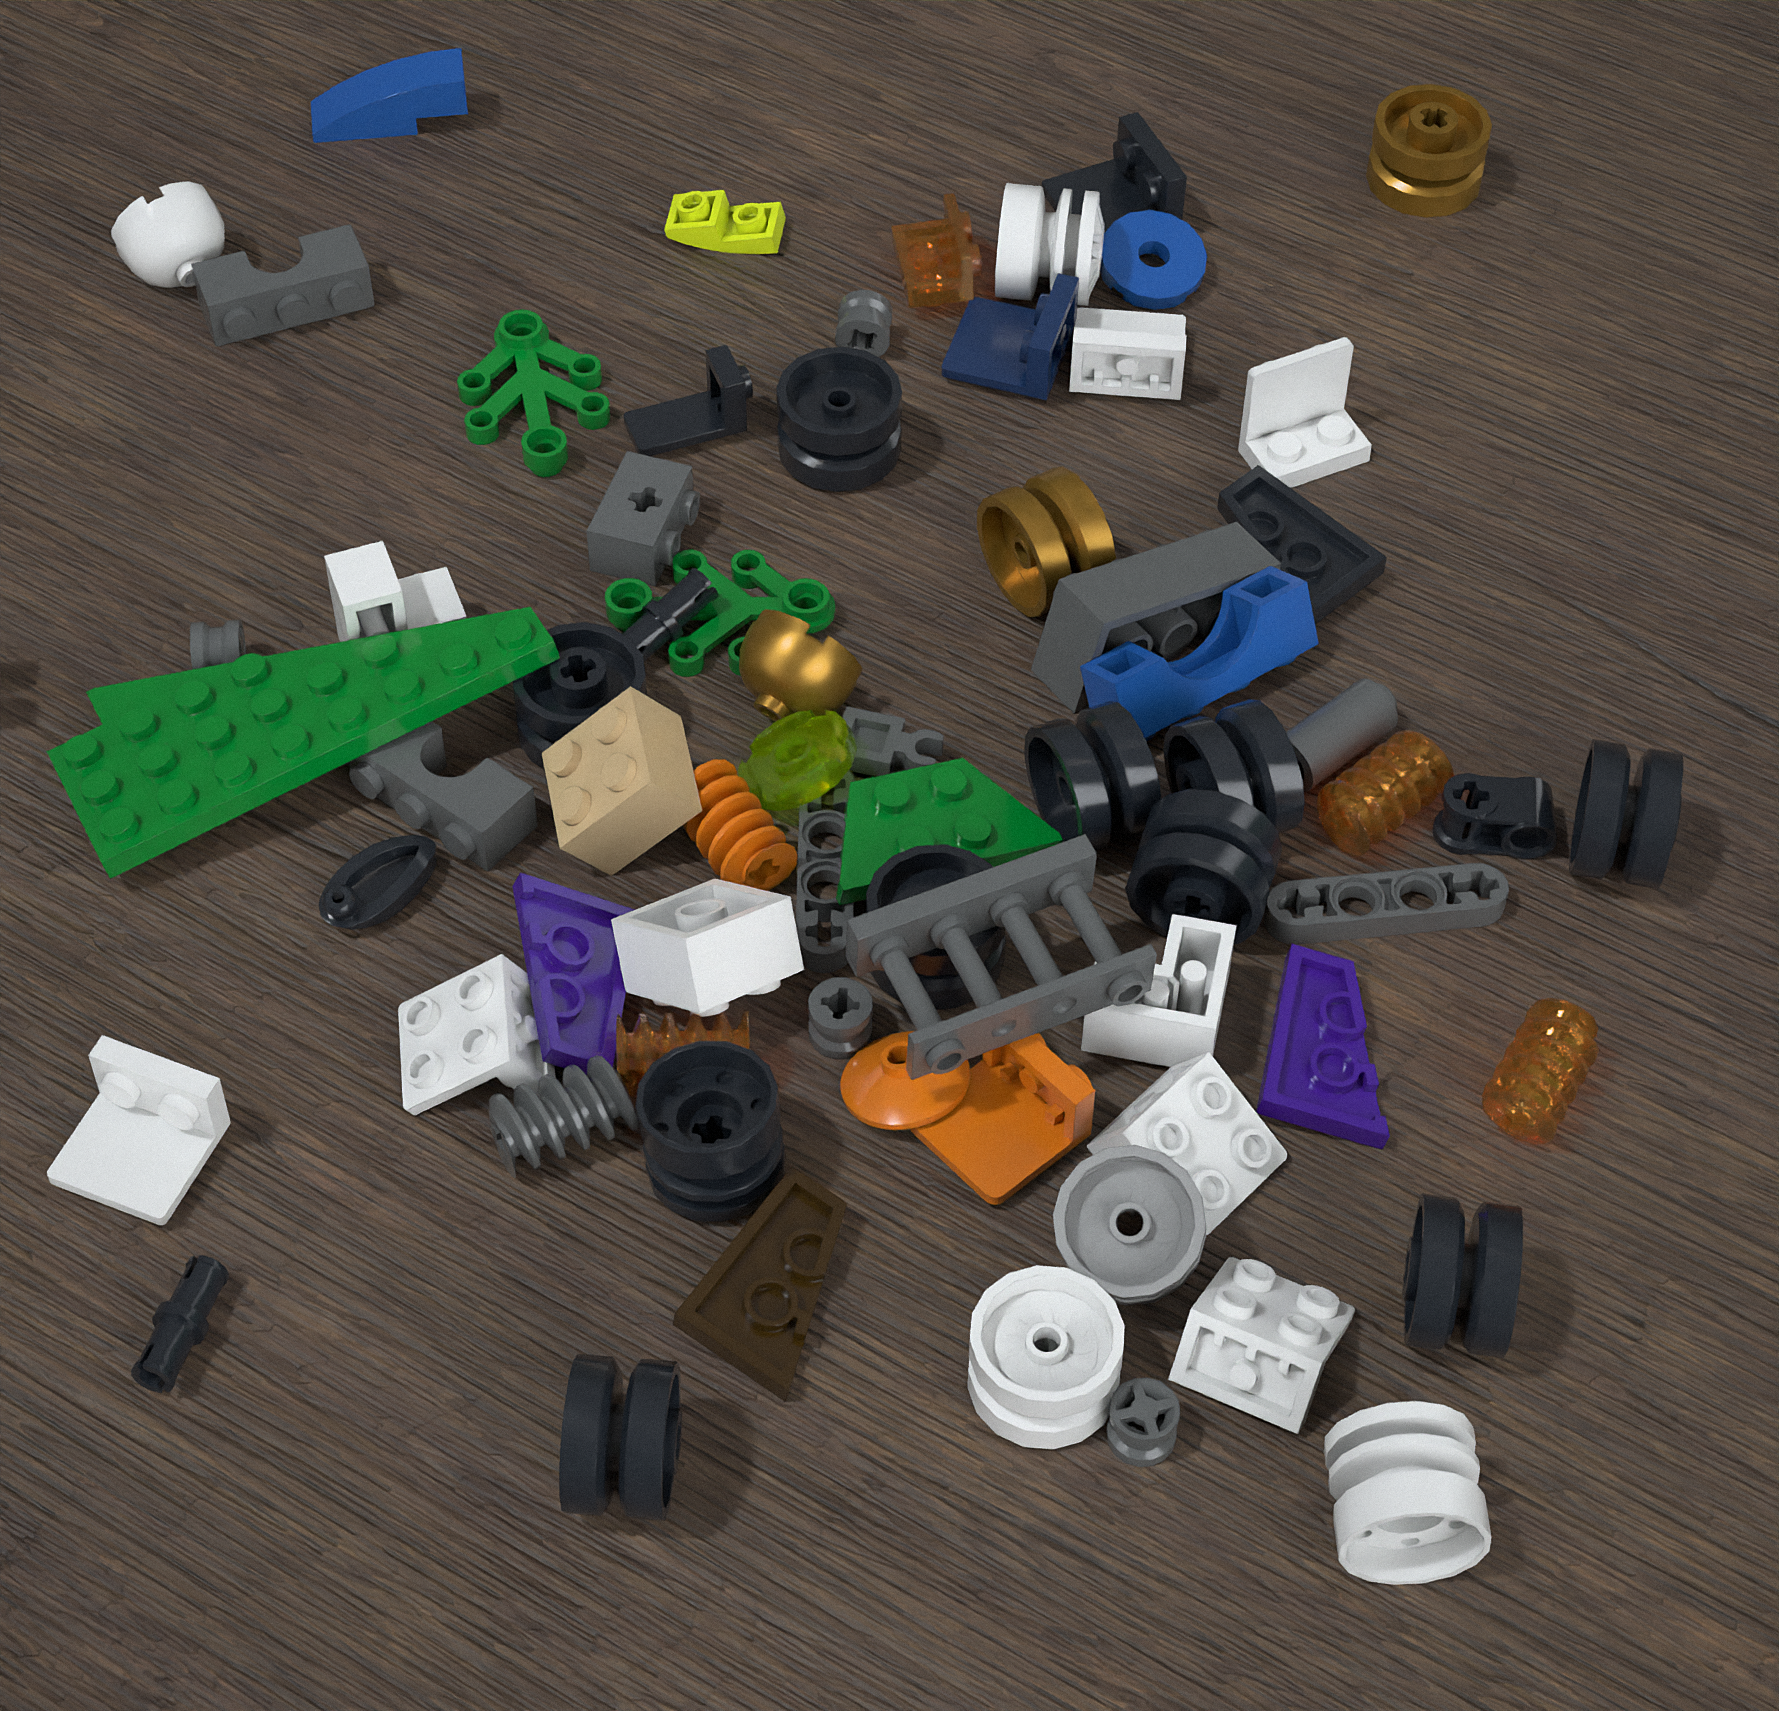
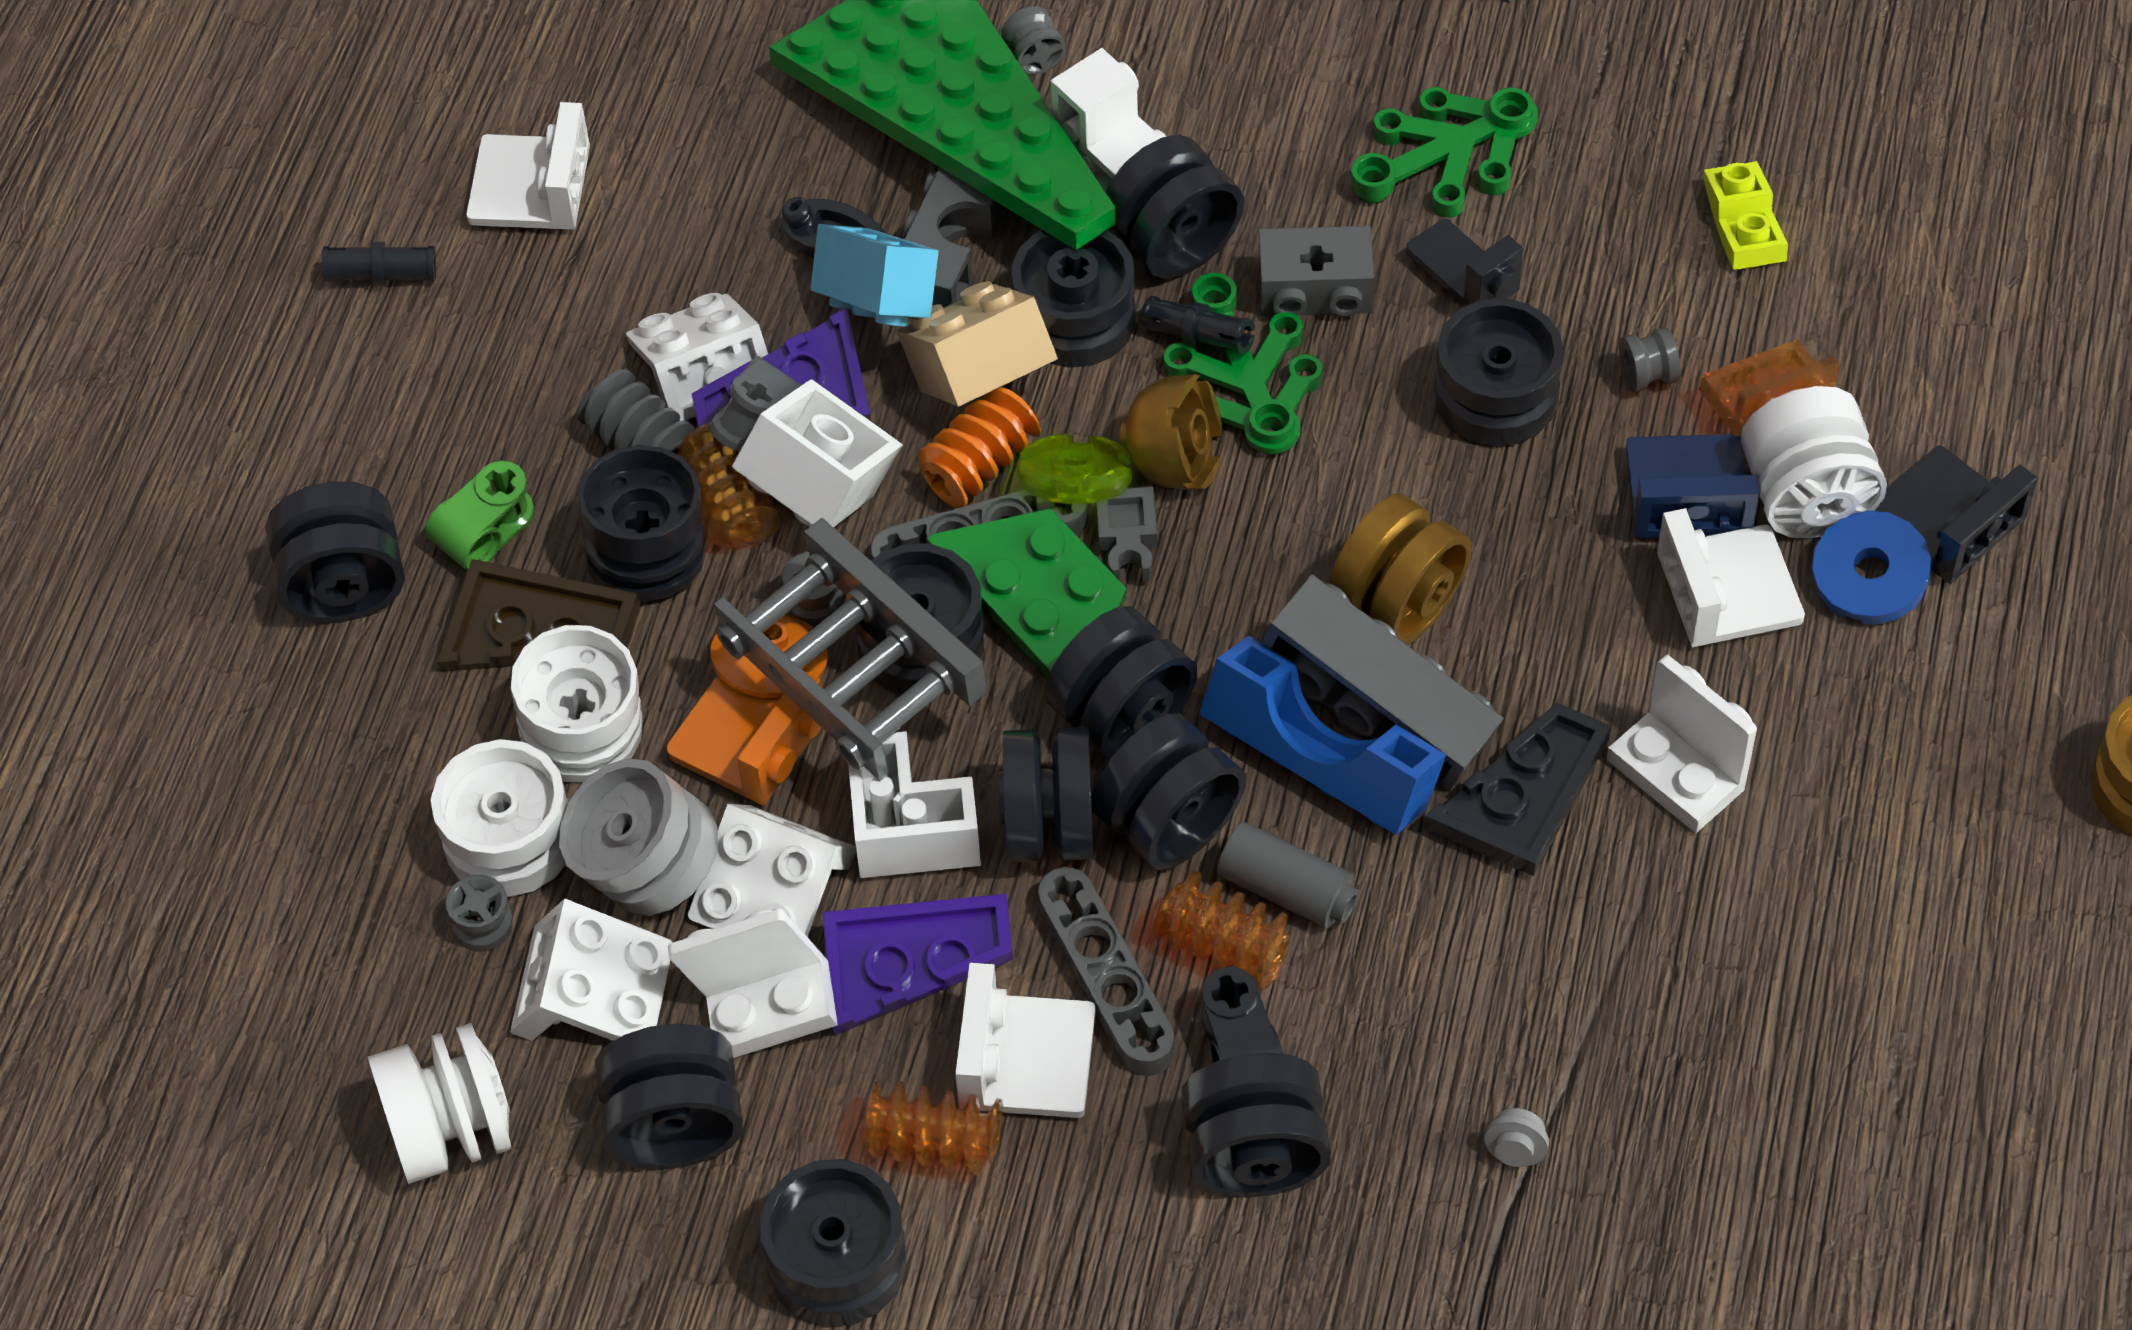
camera: 75 degrees right, 5 degrees up
(497, 829) = (874, 273): none -> medium azure brick
(536, 579) = (1174, 206): none -> black wheel
(611, 1294) = (482, 521): none -> bright green piece
(613, 979) = (751, 394): none -> dark grey piece
(927, 1245) = (578, 699): none -> white wheel
(1350, 1176) = (759, 980): none -> white bracket
(1463, 987) = (1023, 1049): none -> white bracket
(1658, 1183) = (833, 1242): none -> black wheel
(1662, 655) = (1517, 1138): none -> light grey plate

